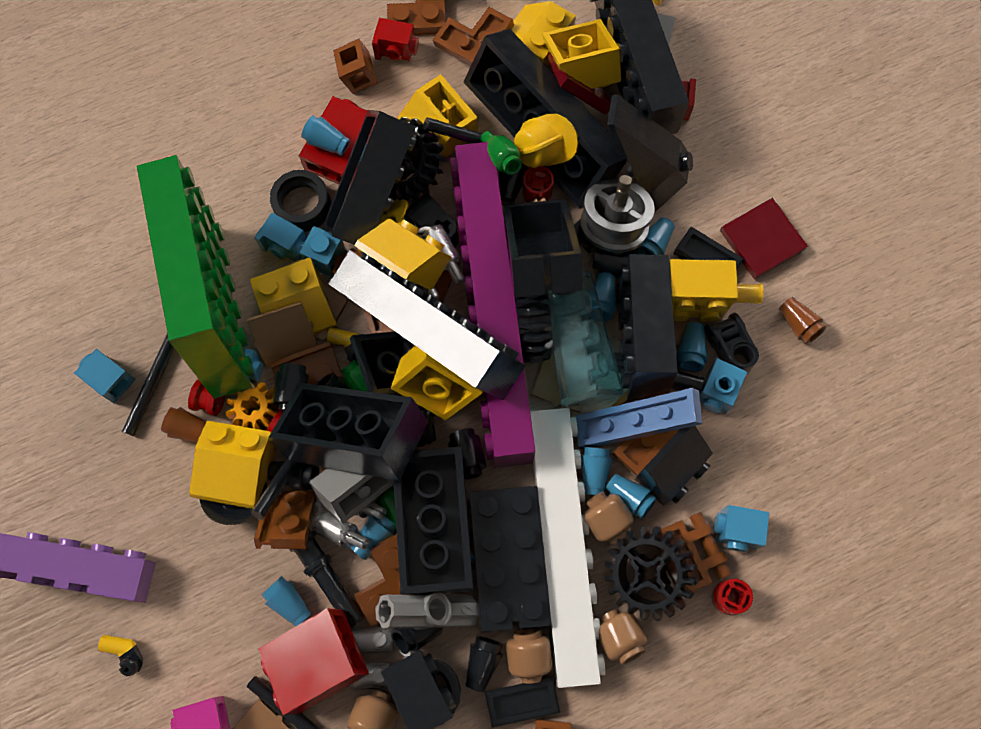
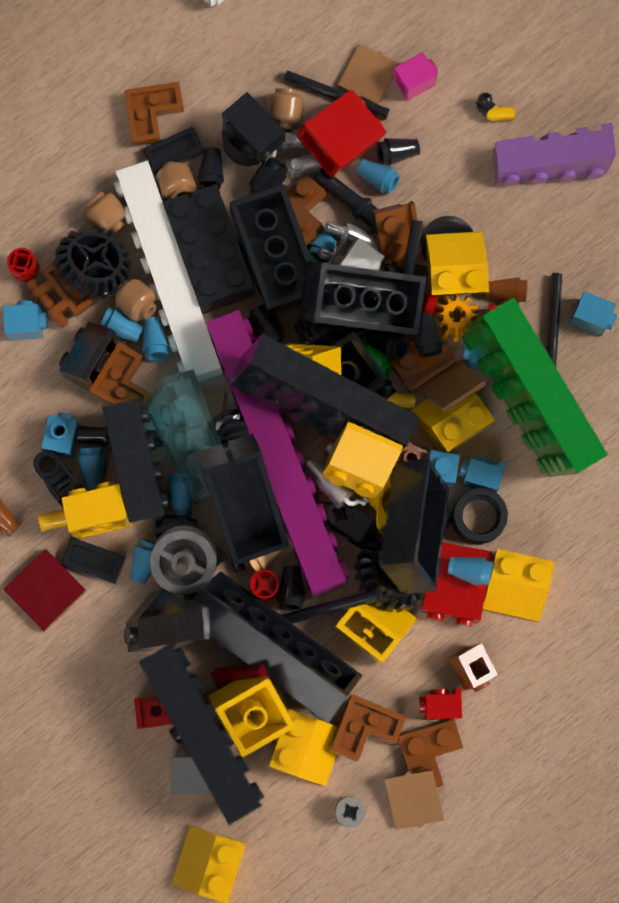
camera: 165 degrees right, 5 degrees up
(254, 628) = (397, 149): none -> black cone
(276, 129) = (518, 585): none -> yellow slope
(427, 611) = (273, 174): light grey piece -> none
(502, 153) = (302, 587): green plant -> none
(546, 141) = (268, 610): yellow piece -> none
(639, 418) = (123, 377): medium blue plate -> none

